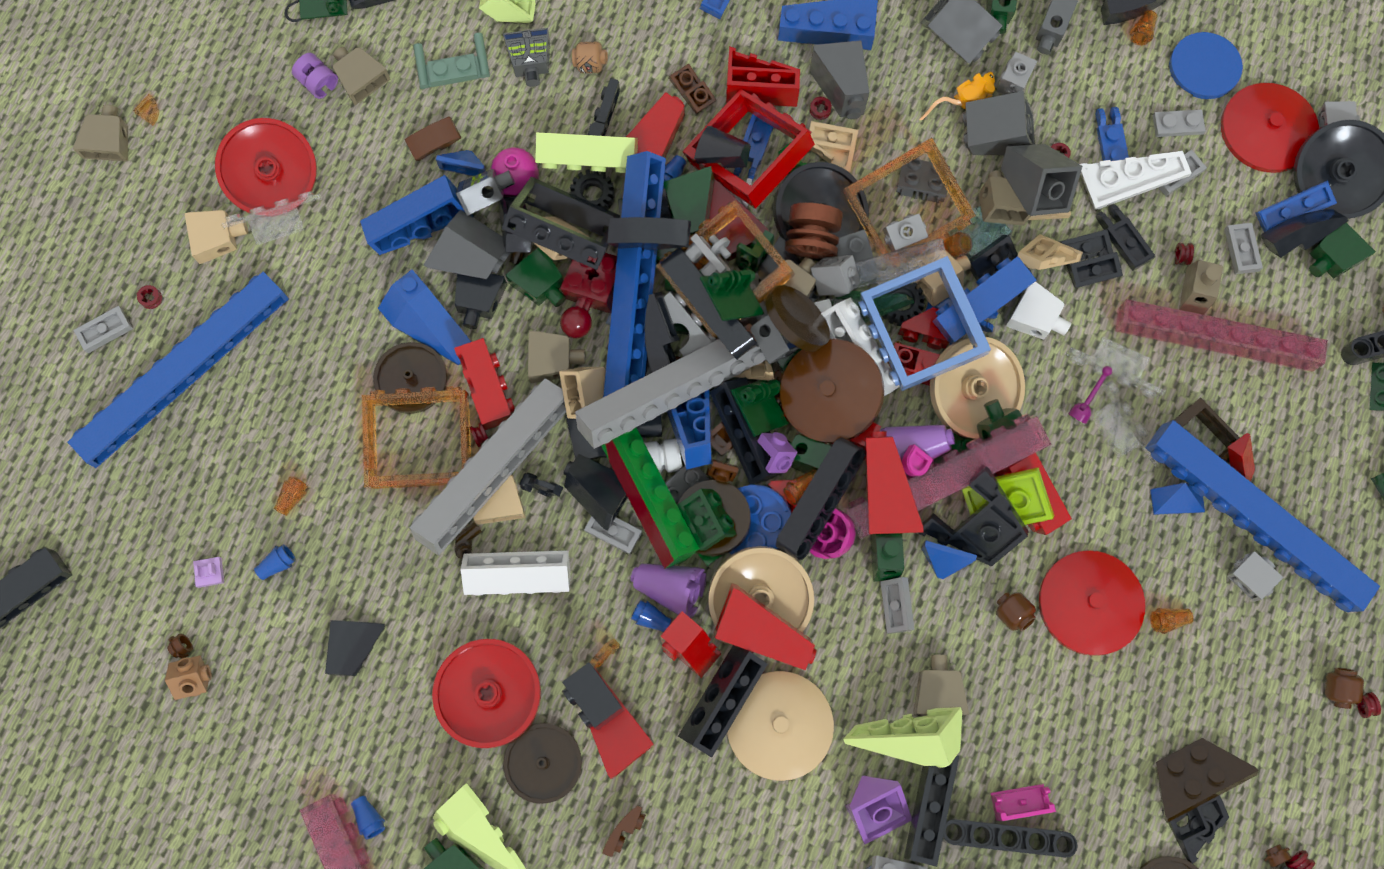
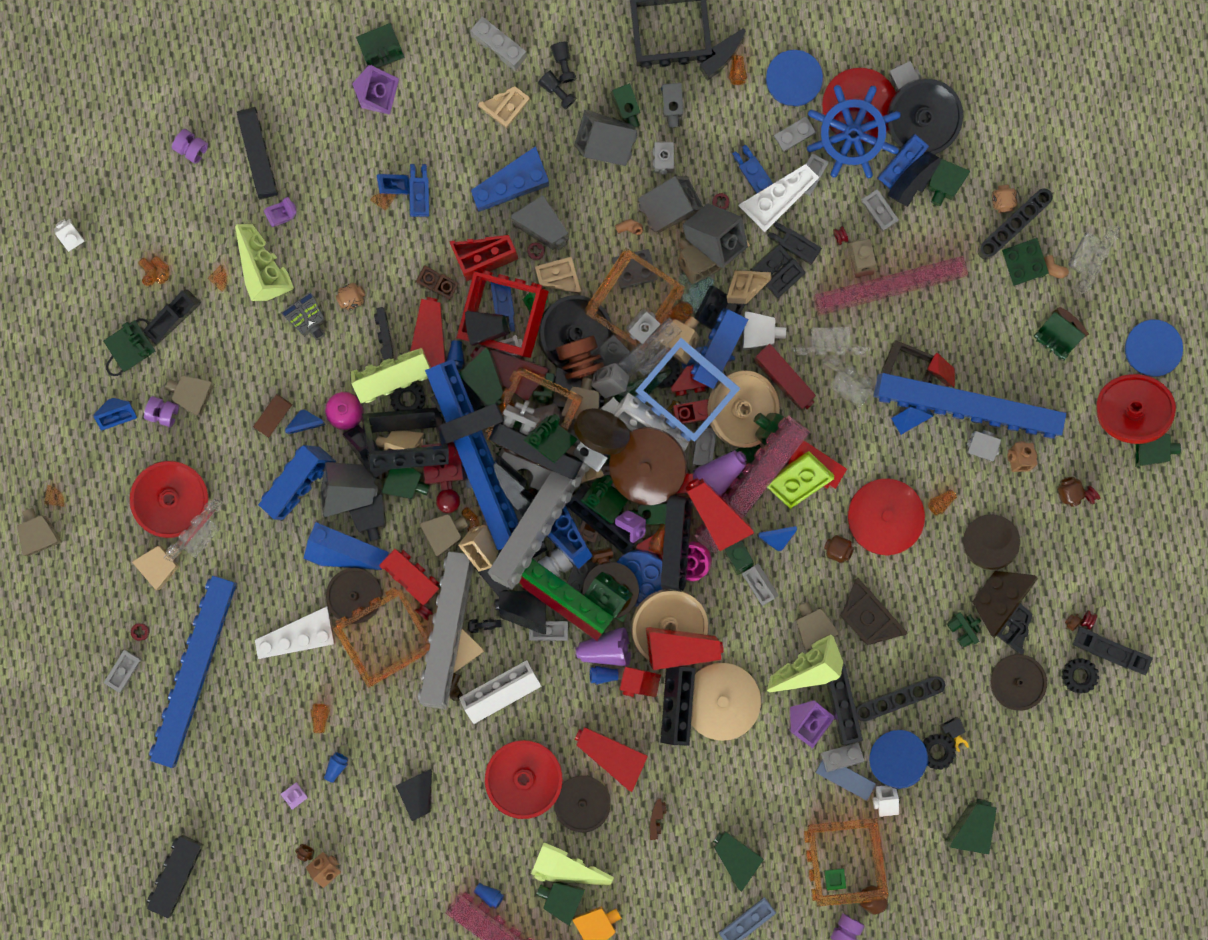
camera: 25 degrees left, 10 degrees up
(264, 56) = (114, 413): none -> blue slope
(320, 390) = (301, 635): none -> white wing
(452, 69) = (255, 355): sand green plate -> none
(474, 194) = (332, 440): dark grey torso -> none
(592, 696) = (595, 748): black piece -> none
(593, 354) = (471, 517): none -> clear orange arm
(608, 649) = (585, 714): clear orange tile -> none
(909, 408) = (704, 447): none -> light grey plate
(916, 461) = (727, 487): dark pink tile -> none
(941, 131) = (631, 226): none -> medium nougat arm
(969, 91) = (638, 186): light orange animal -> none
(989, 531) = (796, 506): black wing -> none
(1015, 714) = (869, 616): none -> dark brown wing
(1022, 802) = (899, 671): dark pink hinge -> none
(1044, 375) = (784, 377): none -> dark red slope
(1082, 410) = (821, 388): magenta hinge -> none
(1137, 792) = (960, 622): none -> dark green hips
(1214, 699) = (991, 542): none -> dark brown piece
(1254, 144) = (853, 131): none -> blue piece
(1299, 613) = (1022, 457): none -> medium nougat brick

